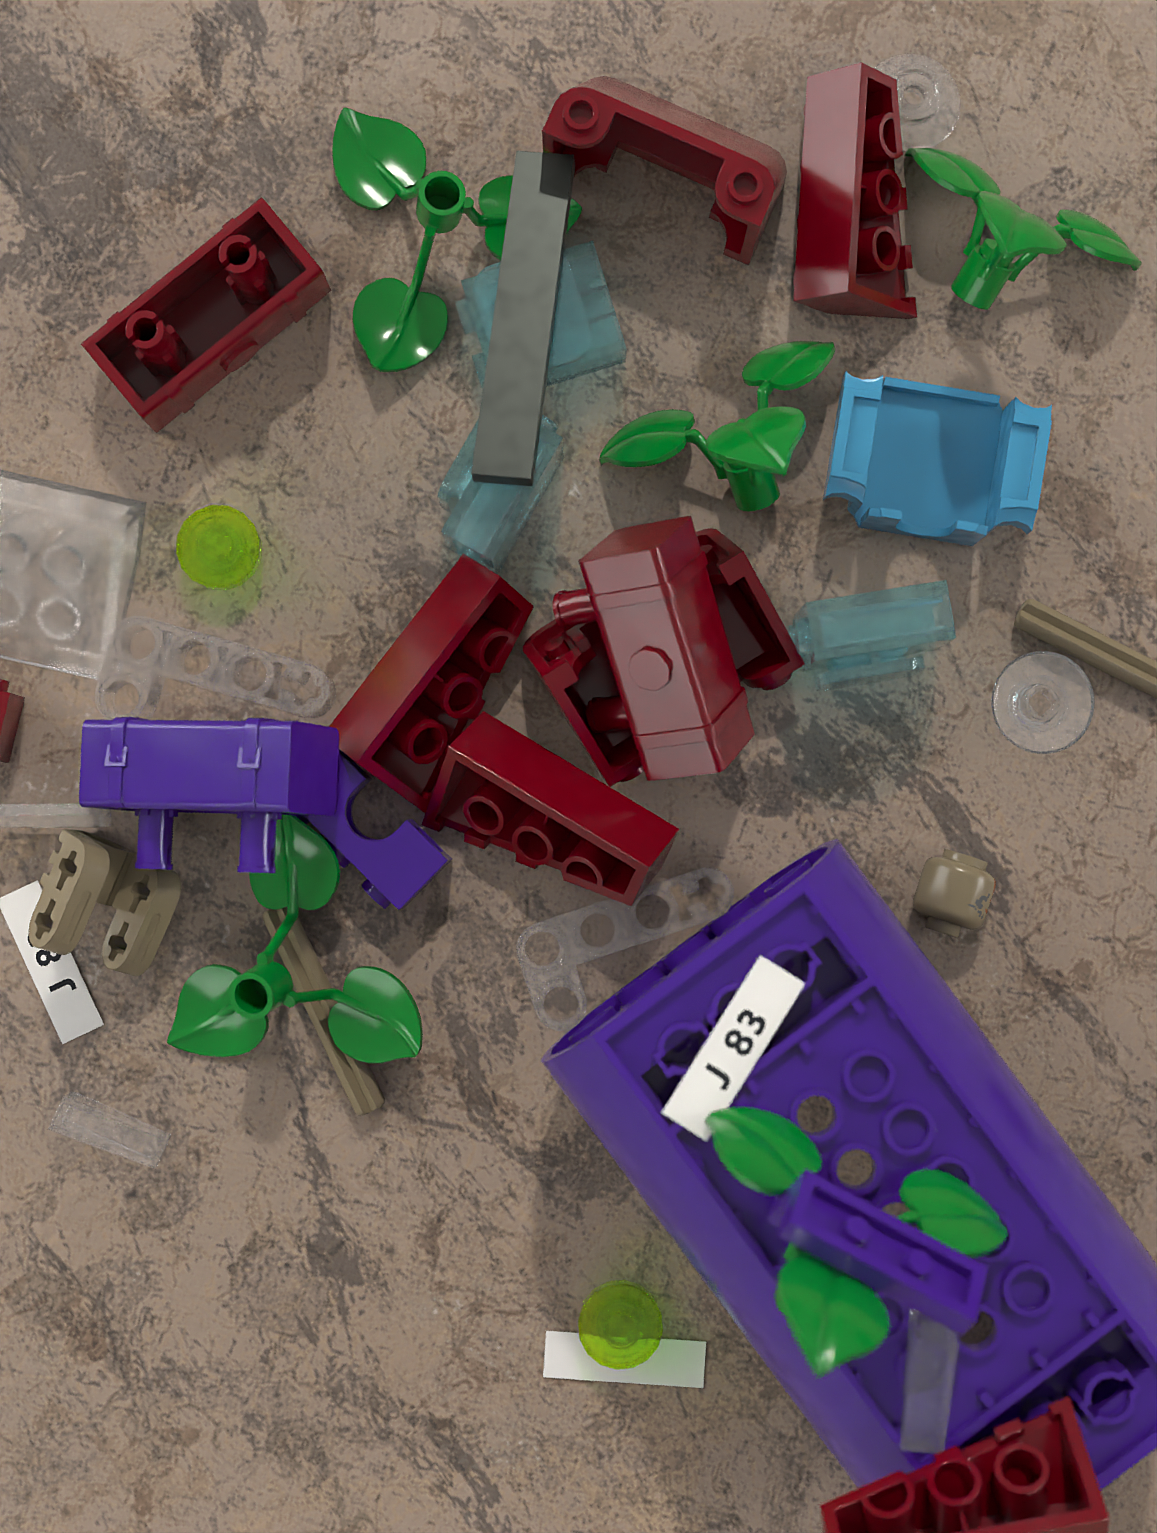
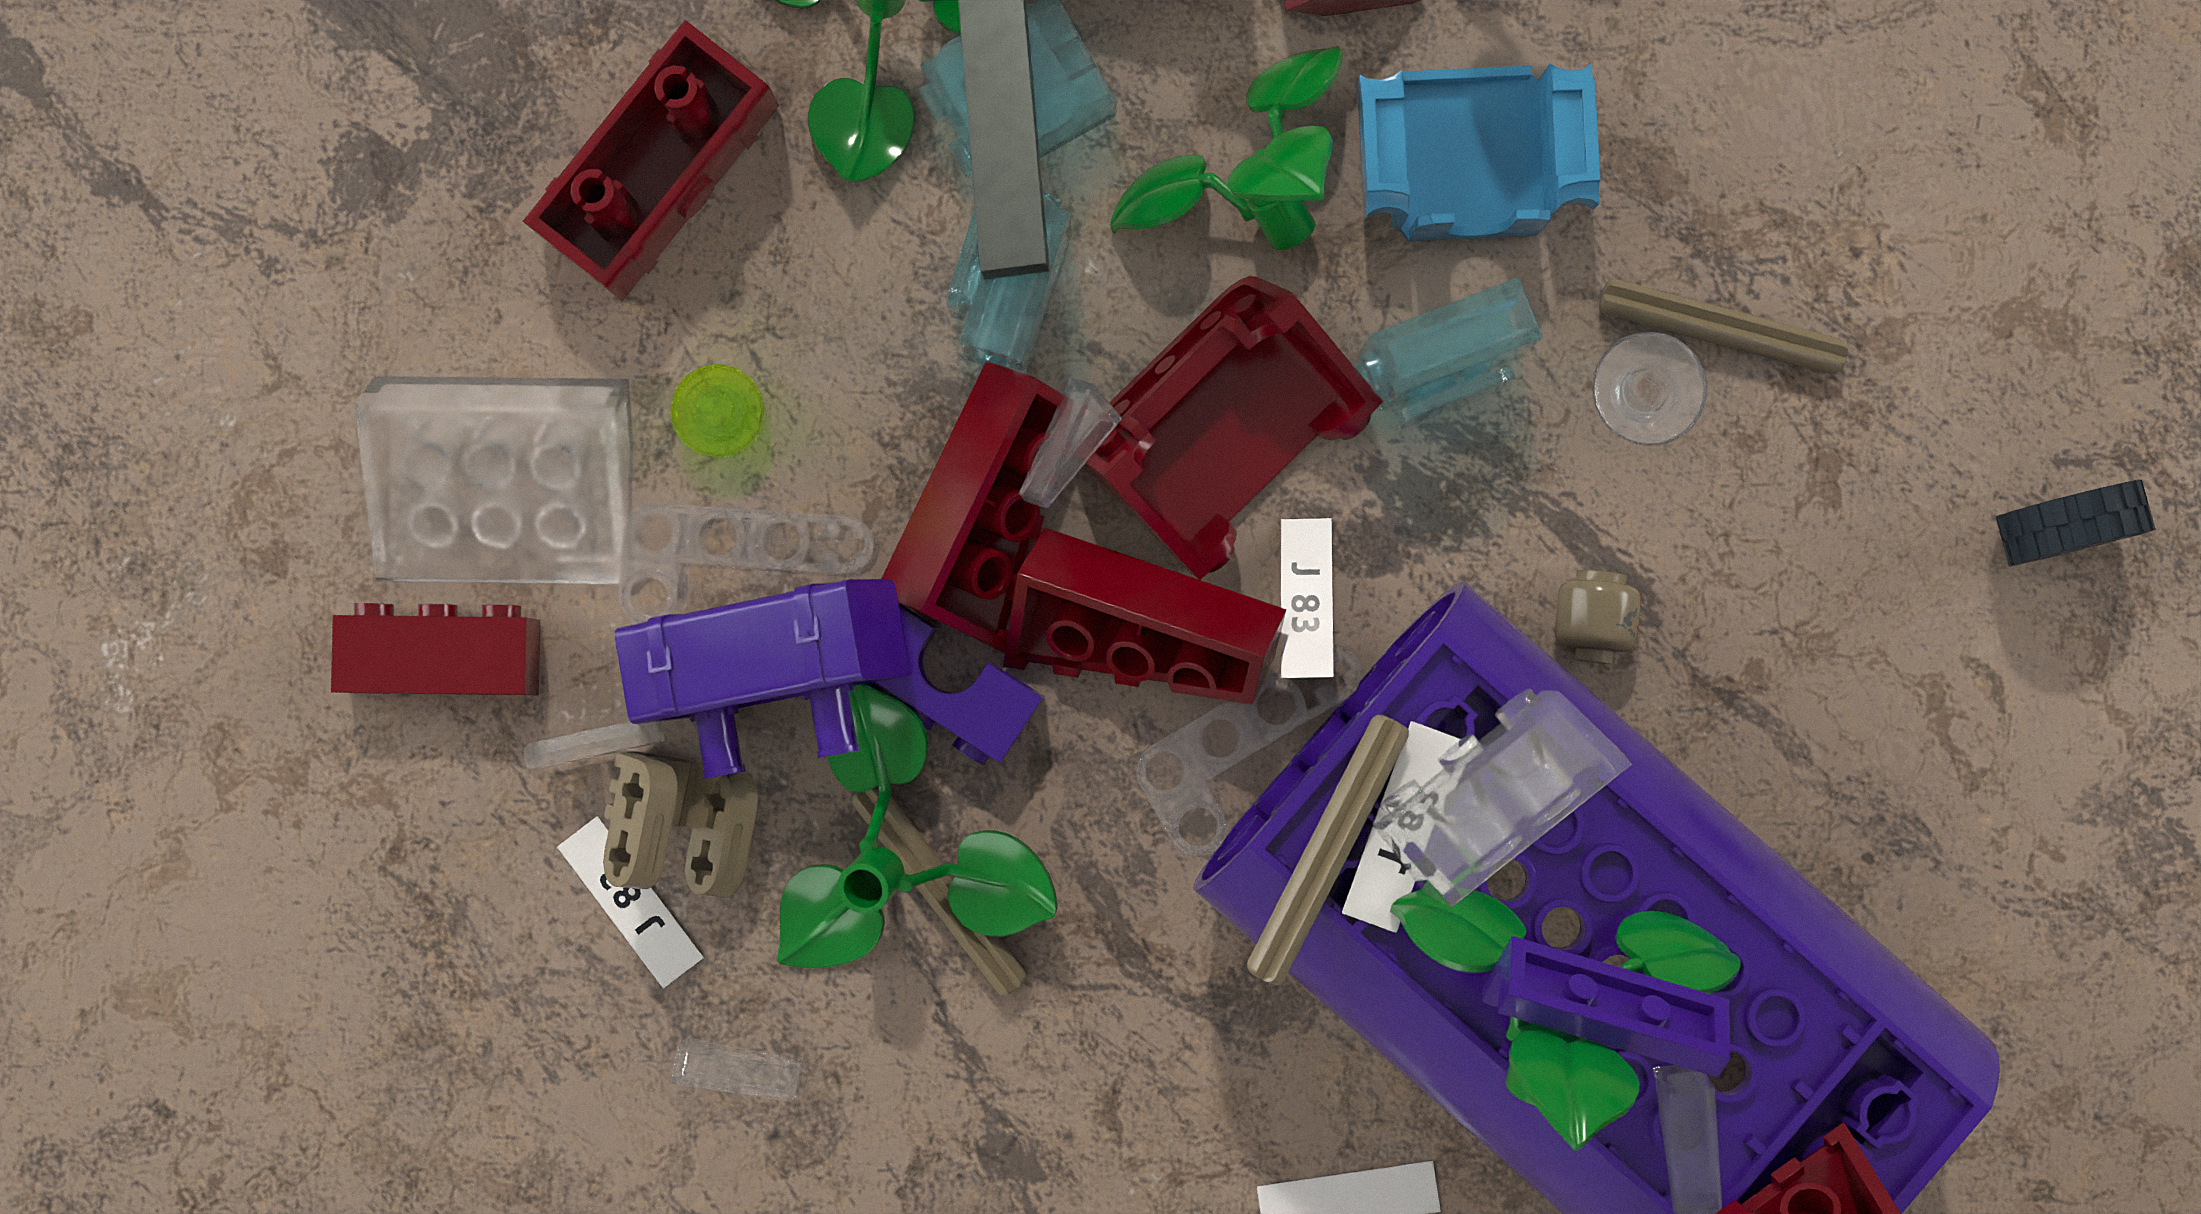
camera: 10 degrees left, 0 degrees up
(520, 640) = (1070, 440): none -> clear piece
(620, 1324) = (1336, 1161): clear neon green plate -> none
(660, 1054) = (1327, 849): none -> dark tan axle
(664, 649) = (1228, 416): dark red piece -> none
(700, 832) = (1307, 597): none -> white sticker
(822, 1038) = (1497, 794): none -> clear slope

